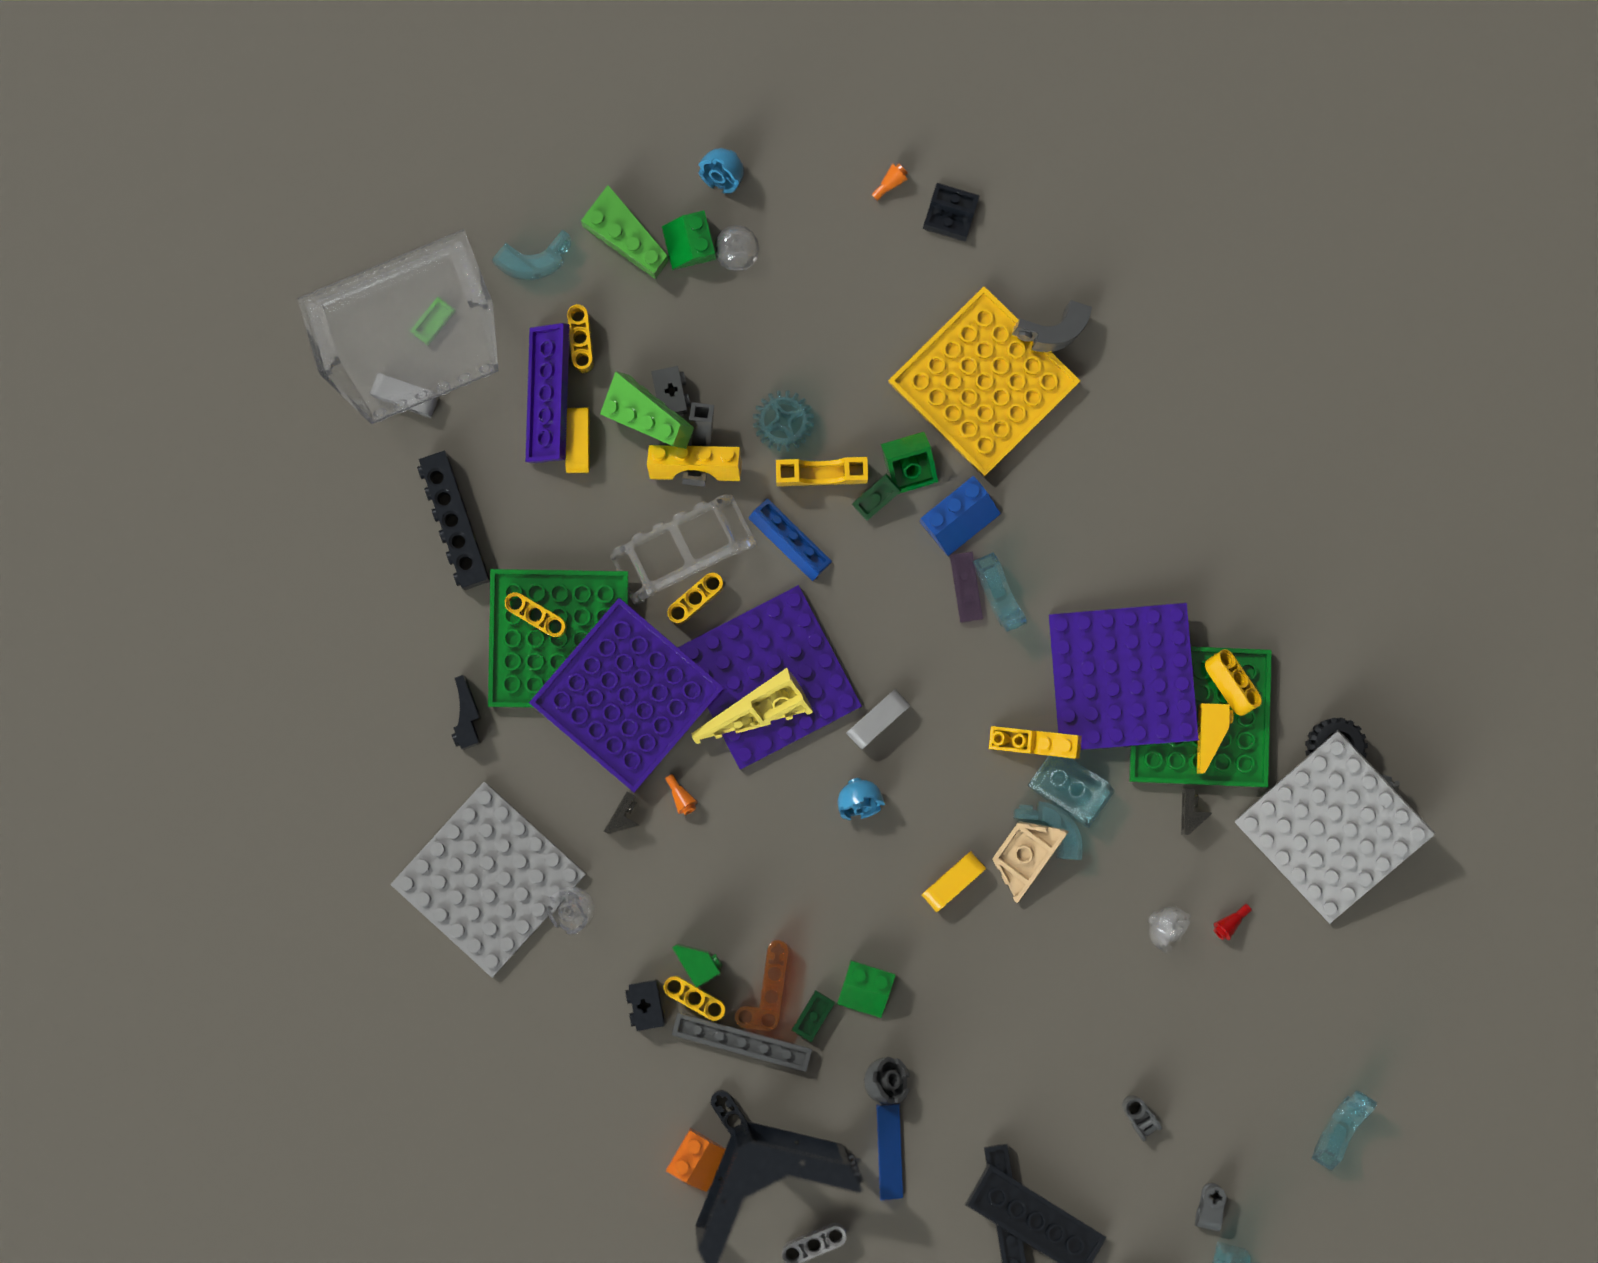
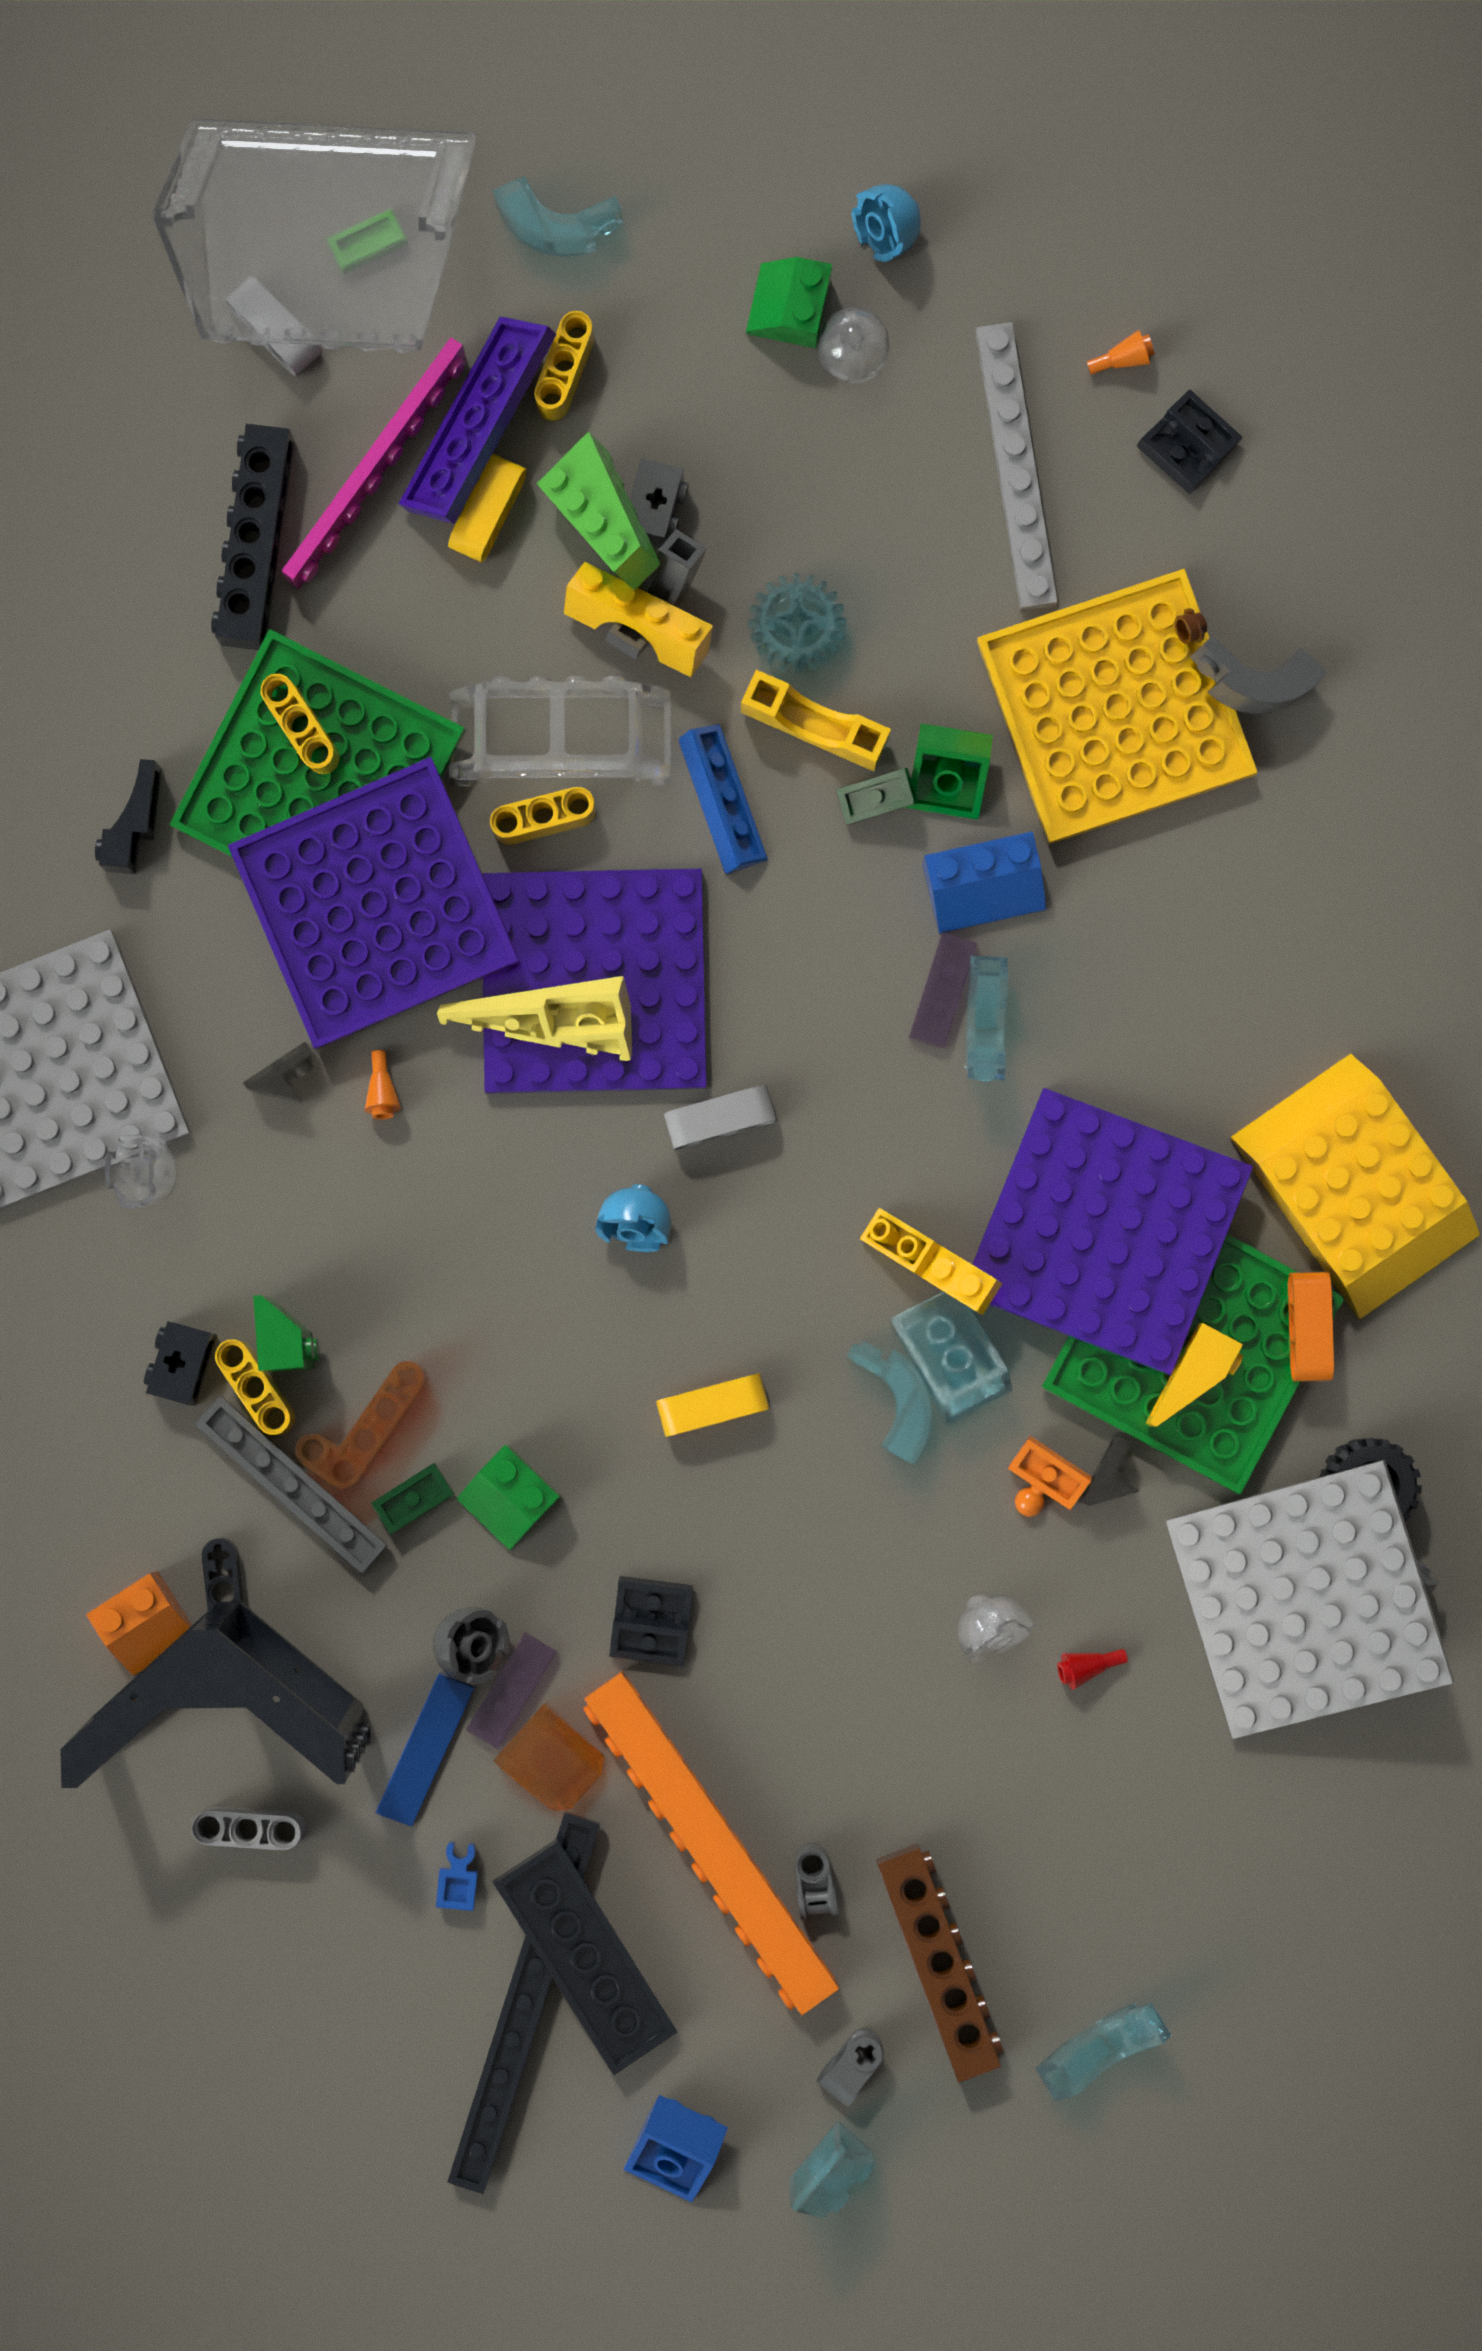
camera: 30 degrees right, 0 degrees up
(500, 455) = (367, 475): none -> dark pink plate
(621, 230) = (699, 239): bright green wedge -> none
(861, 272) = (1016, 466): none -> light grey plate
(920, 1095) = (511, 1690): none -> clear purple tile
(945, 1216) = (457, 1884): none -> blue plate
(962, 1122) = (552, 1760): none -> clear orange slope
(979, 1018) = (651, 1621): none -> black slope
(1004, 317) = (1190, 626): none -> reddish brown plate
(1026, 854) = (837, 1418): tan wing -> none
(1073, 1123) = (711, 1842): none -> orange brick
(1157, 828) = (1048, 1475): none -> orange plate
(1233, 682) = (1264, 1316): yellow beam -> none
(1247, 583) = (1358, 1184): none -> yellow slope
(1261, 675) = (1310, 1326): none -> orange beam
(1273, 1170) = (966, 2058): none -> reddish brown brick

